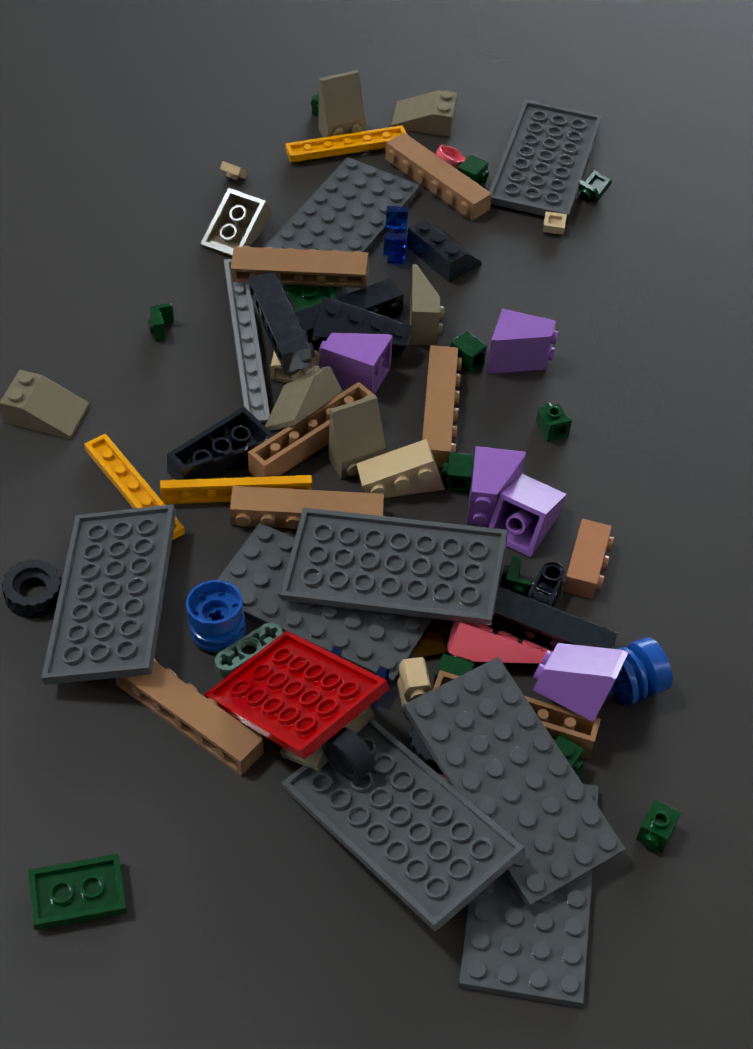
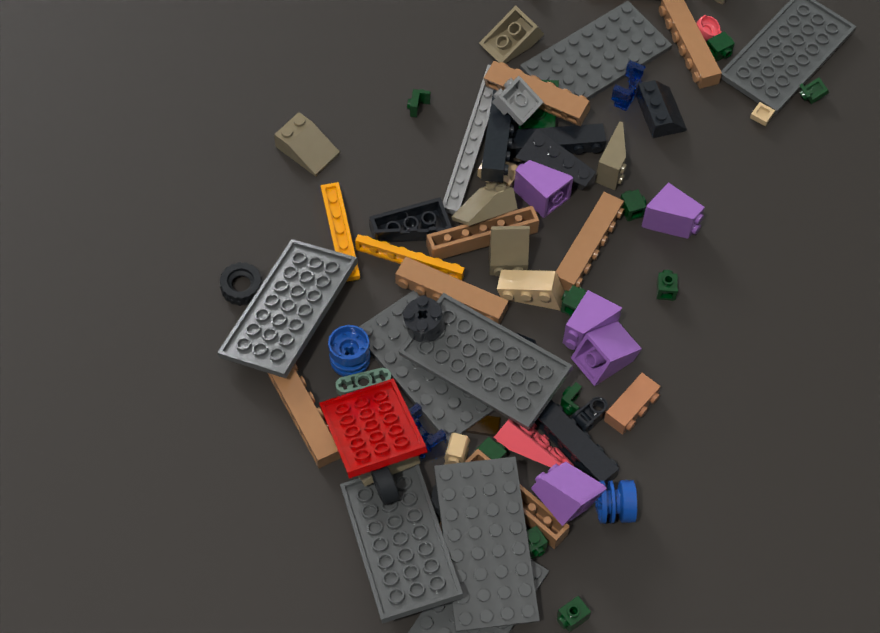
camera: 25 degrees right, 10 degrees up
(76, 891) = (181, 504): dark green plate -> none
(284, 273) = (517, 100): none -> light grey plate
(297, 542) = (424, 319): none -> black brick

